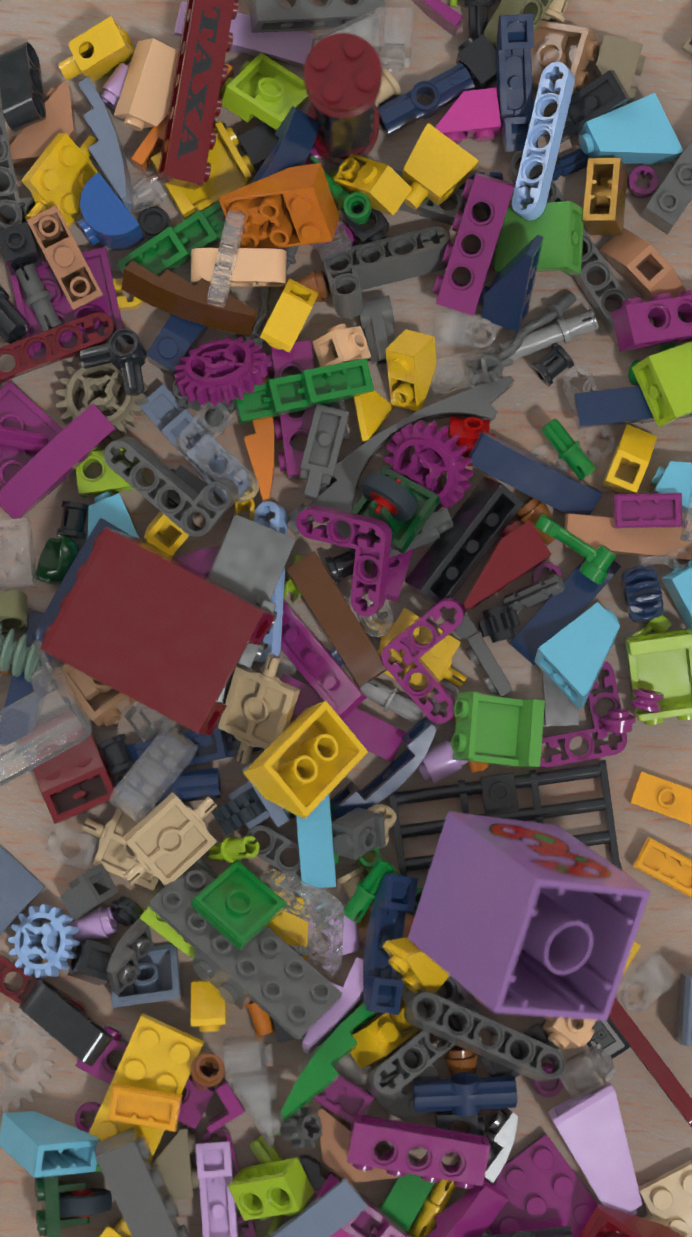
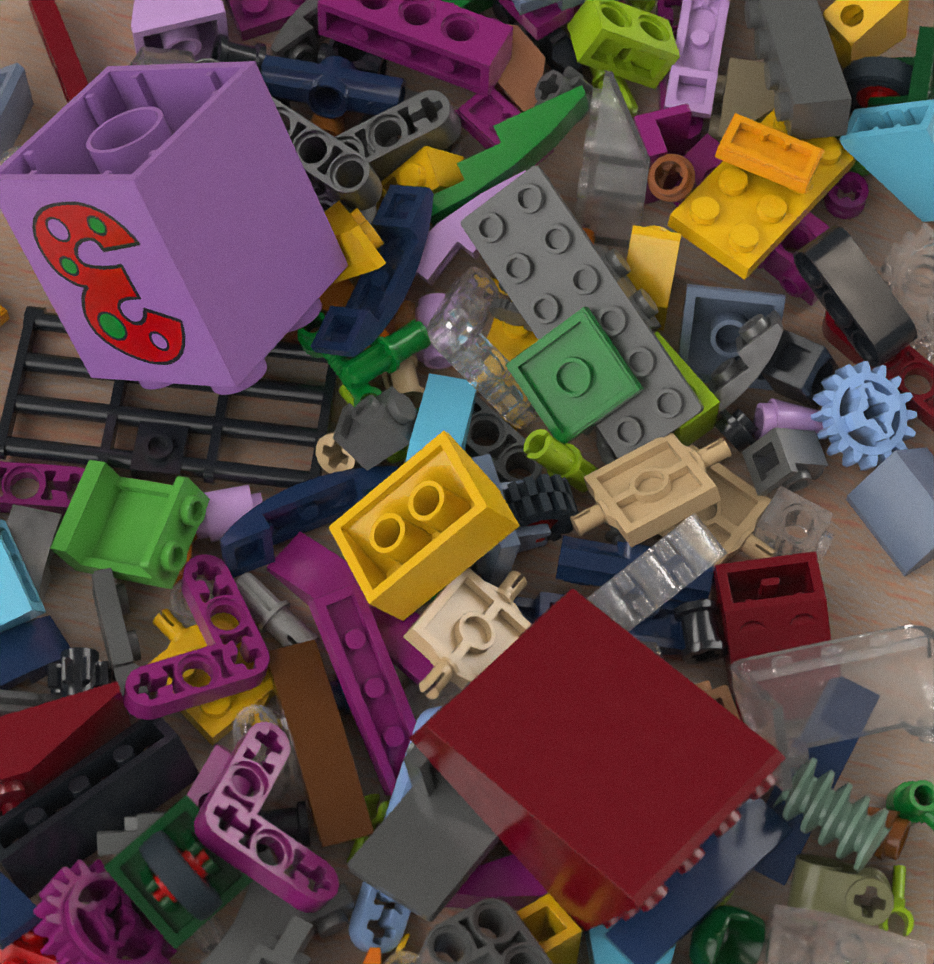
camera: 165 degrees left, 20 degrees down
(538, 1100) = (235, 52): none -> black bush

